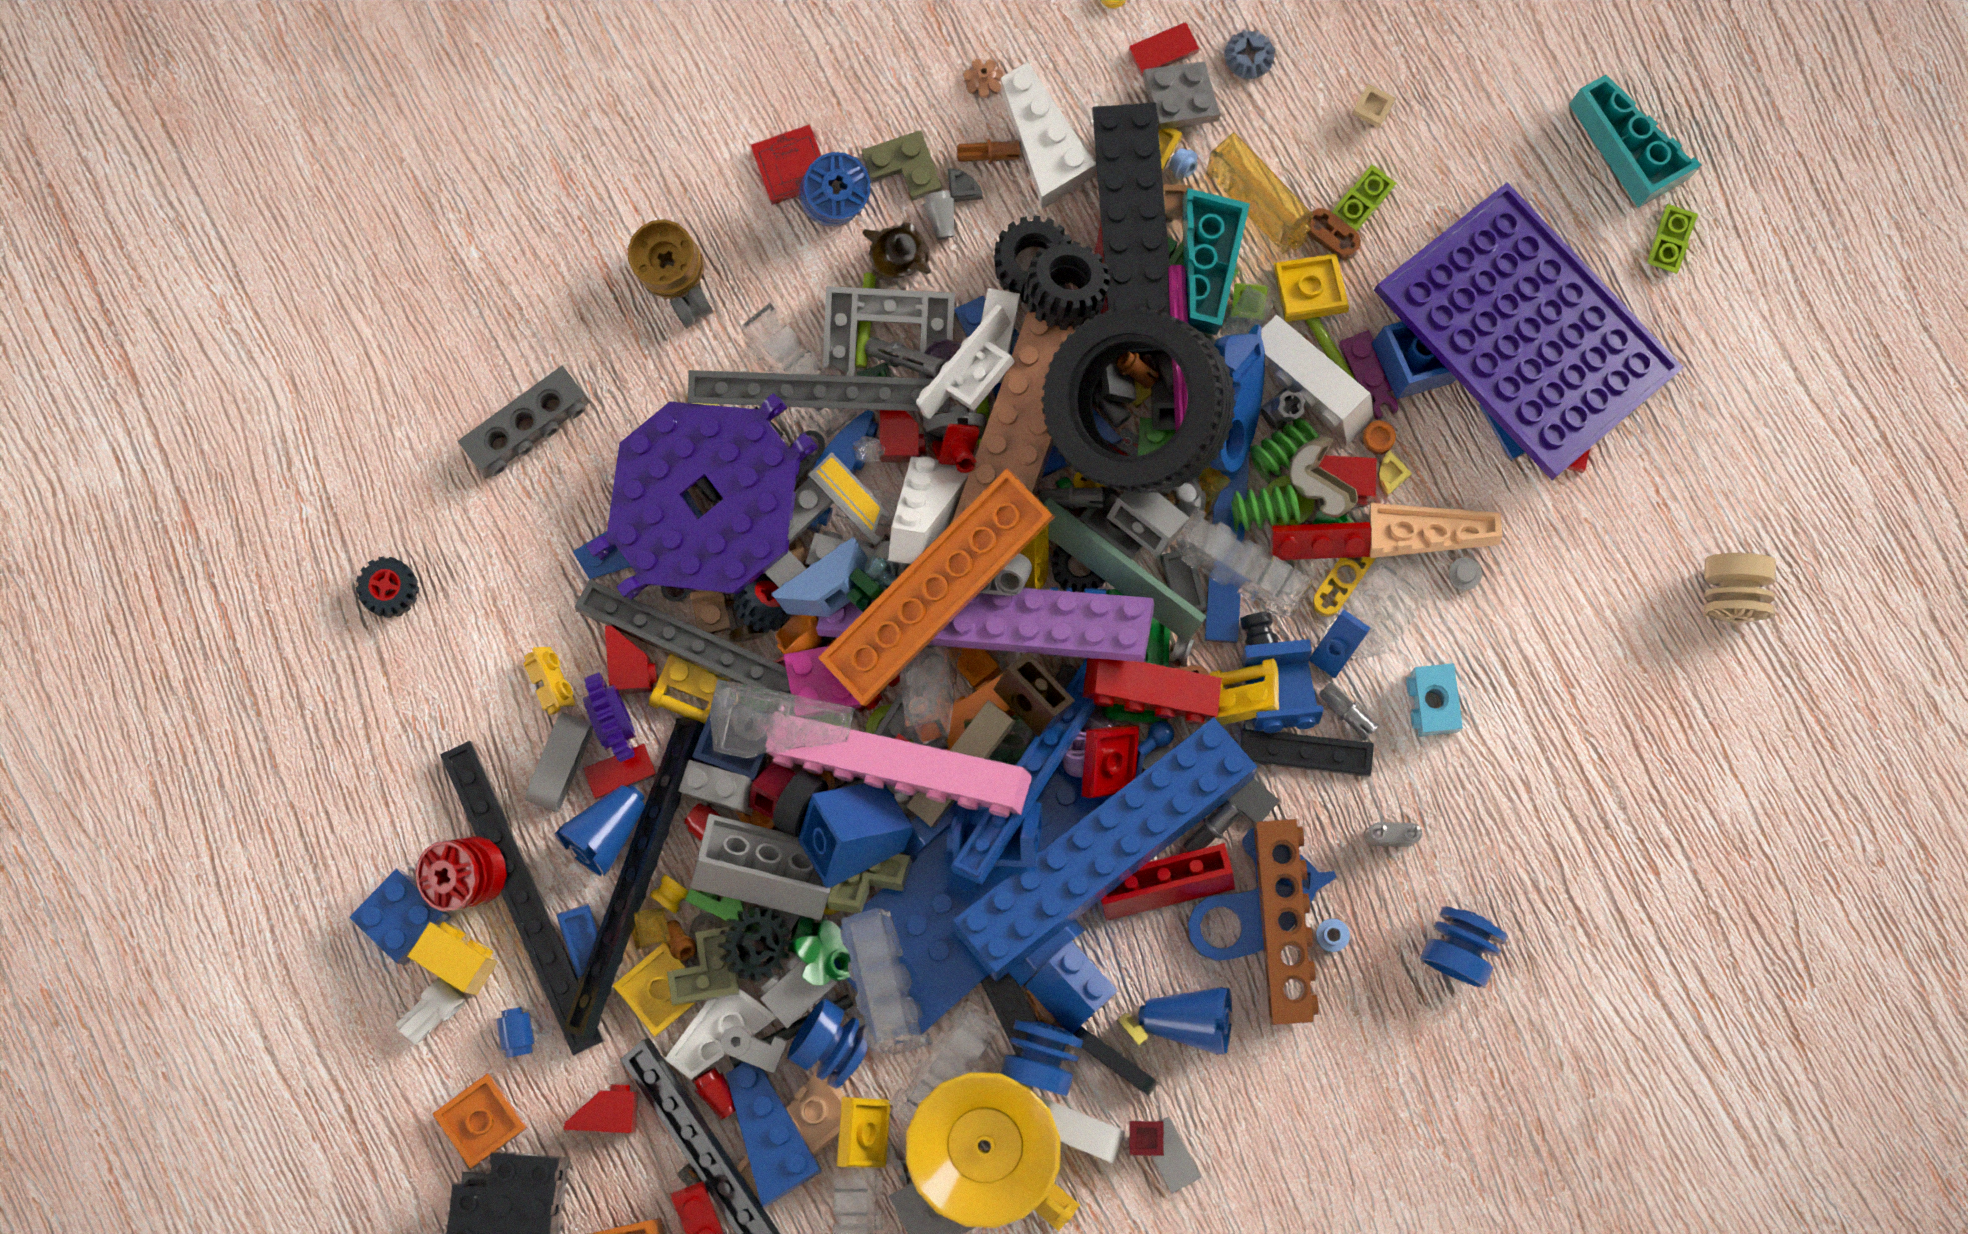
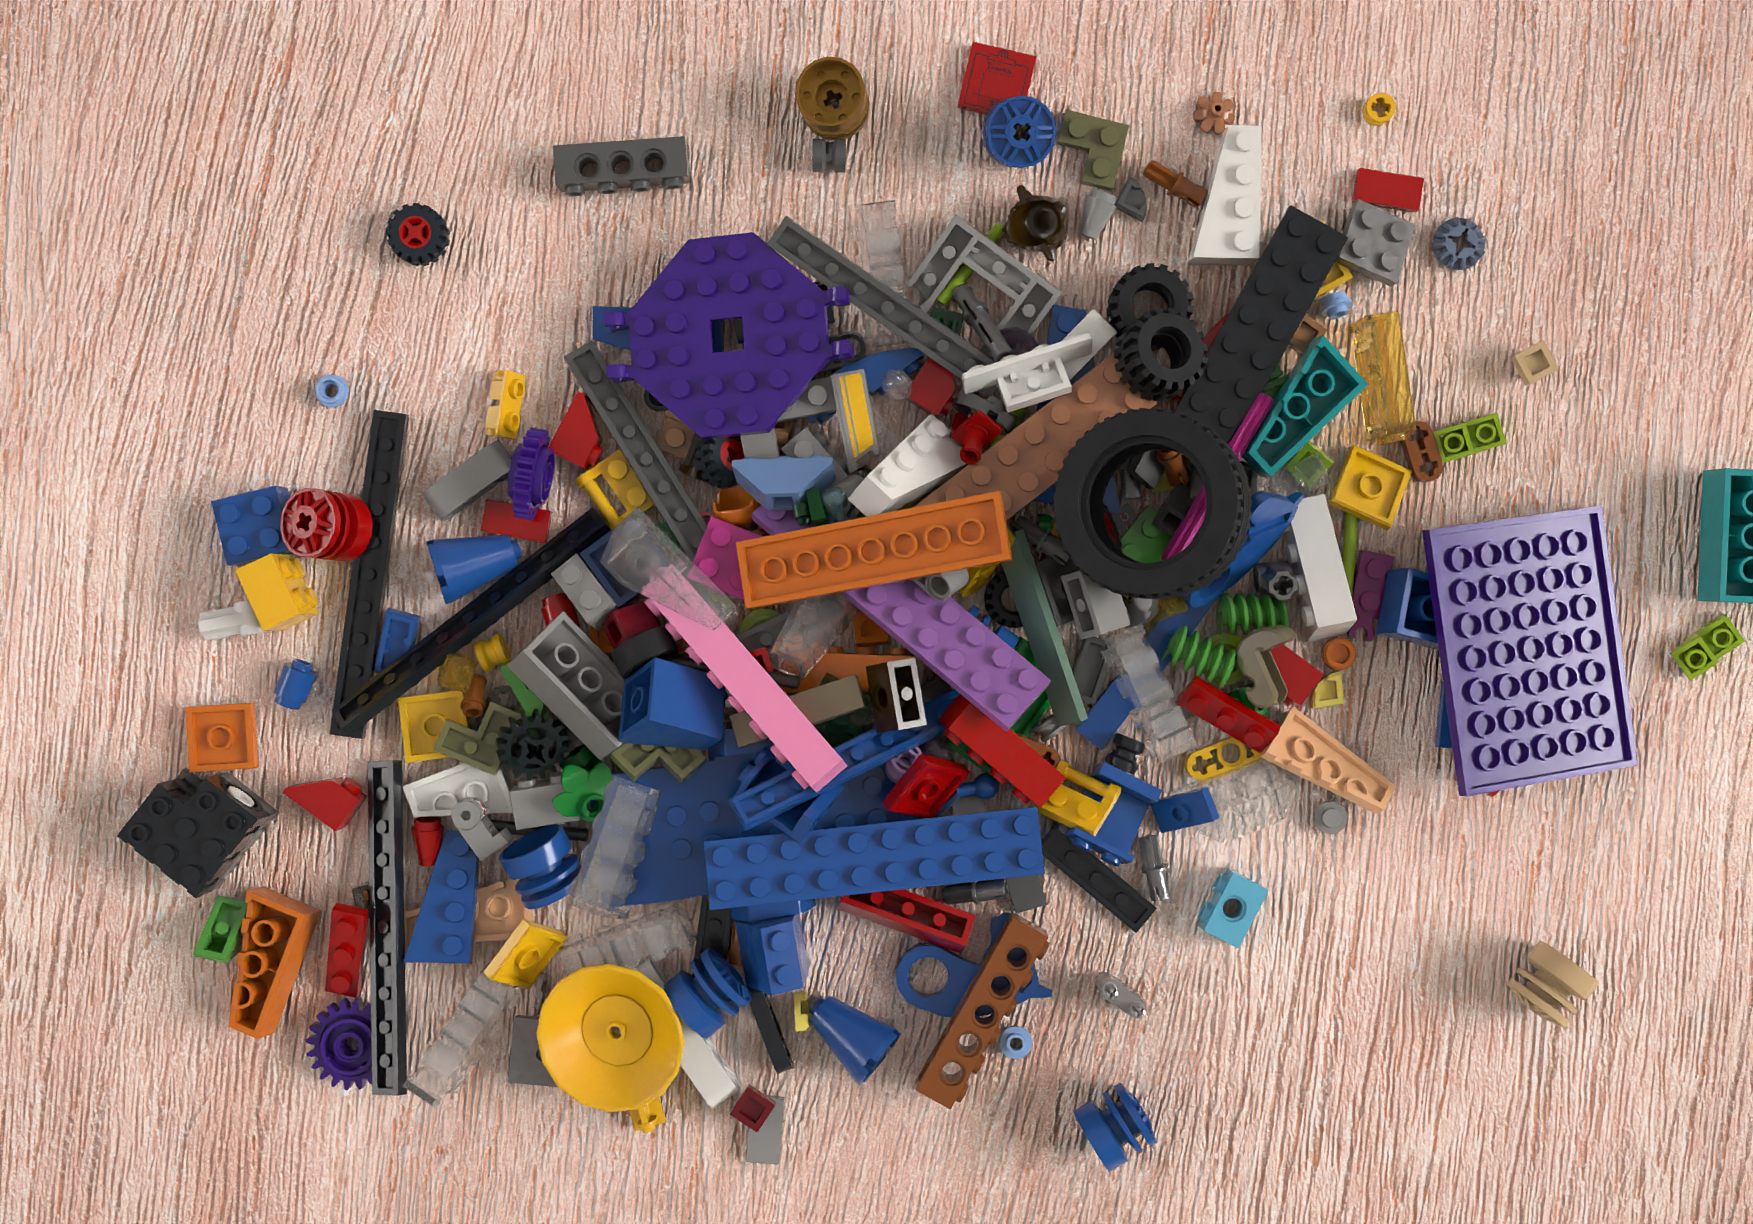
camera: 30 degrees right, 10 degrees up
(384, 759) = (324, 384): none -> light blue plate

